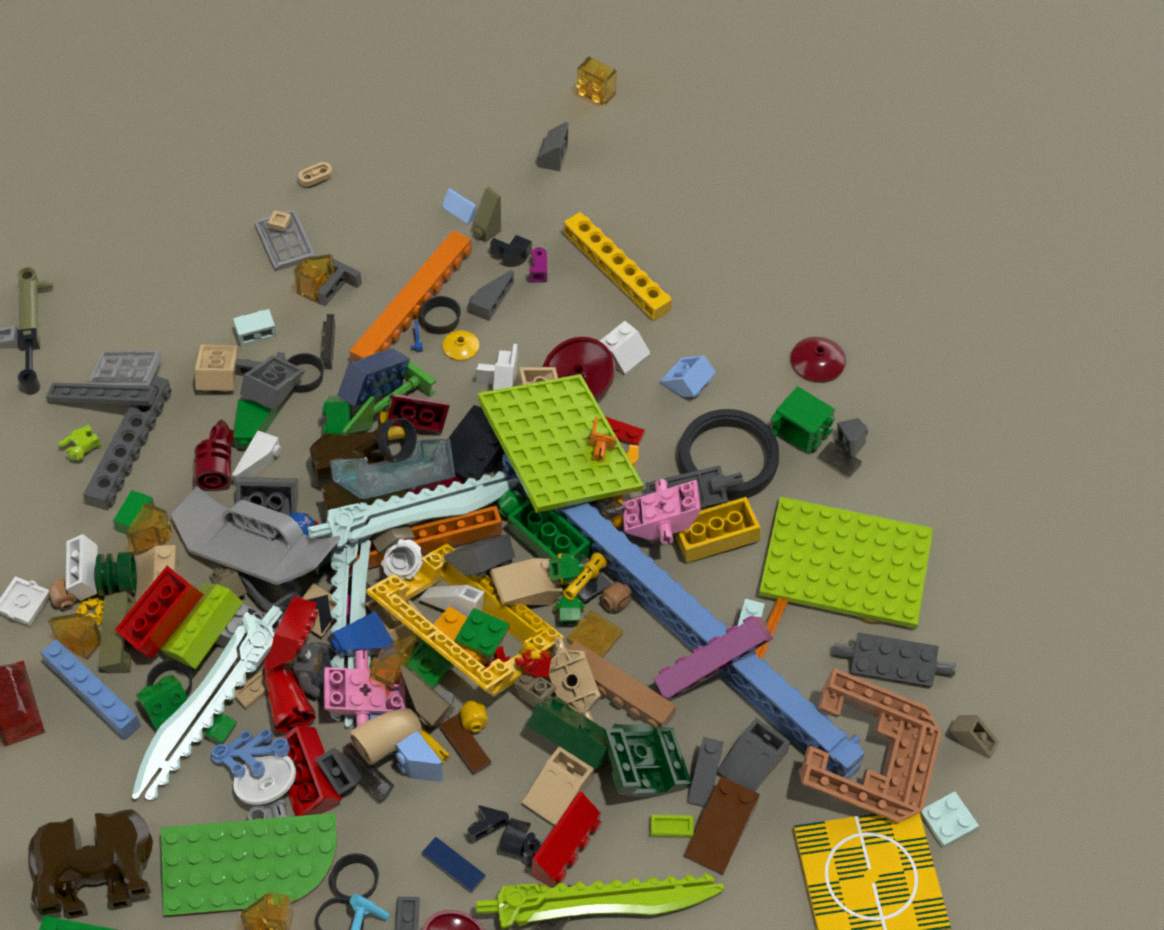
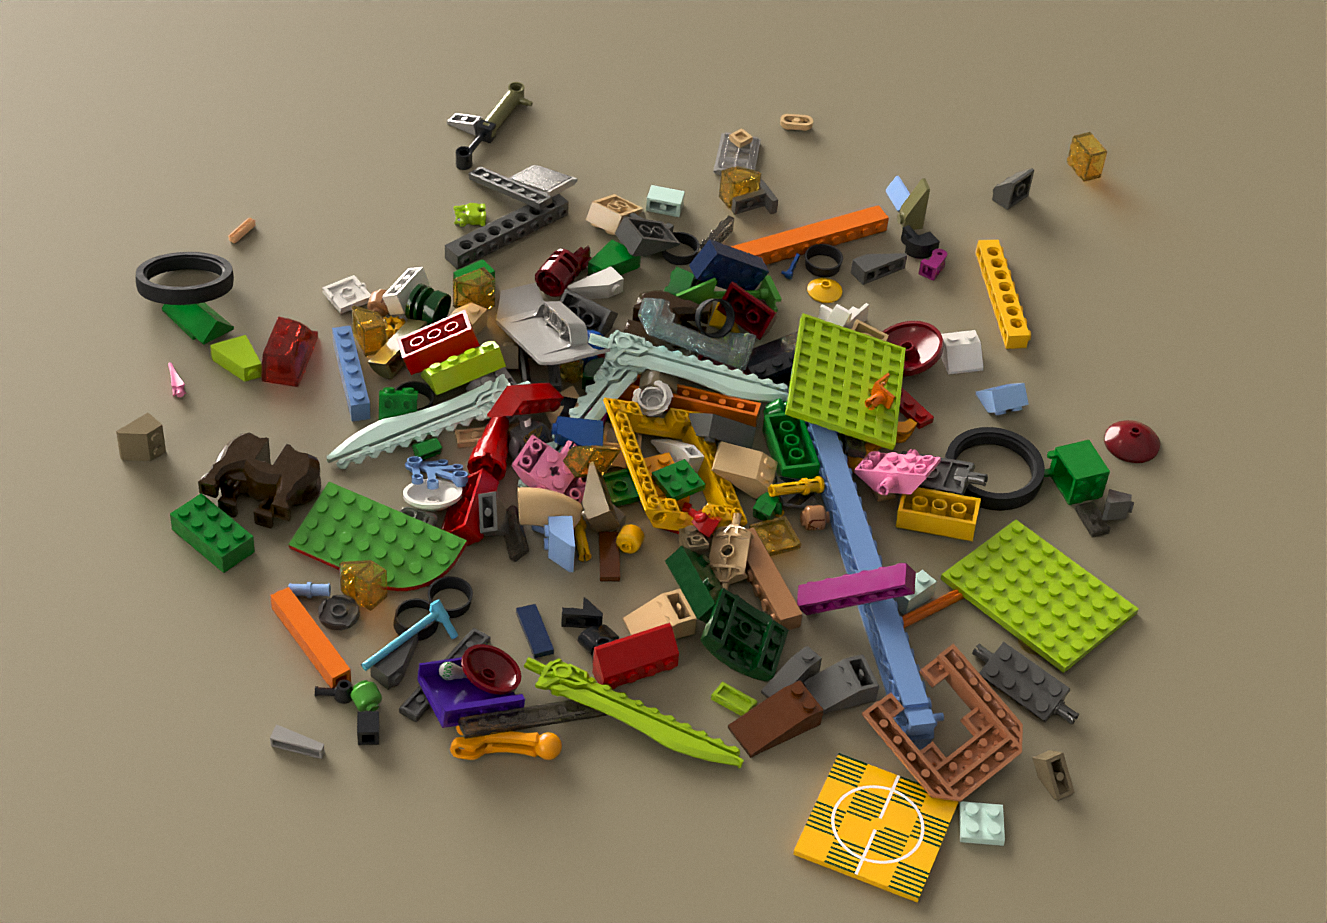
camera: 30 degrees right, 10 degrees down
(565, 568) = (781, 469): green piece -> none

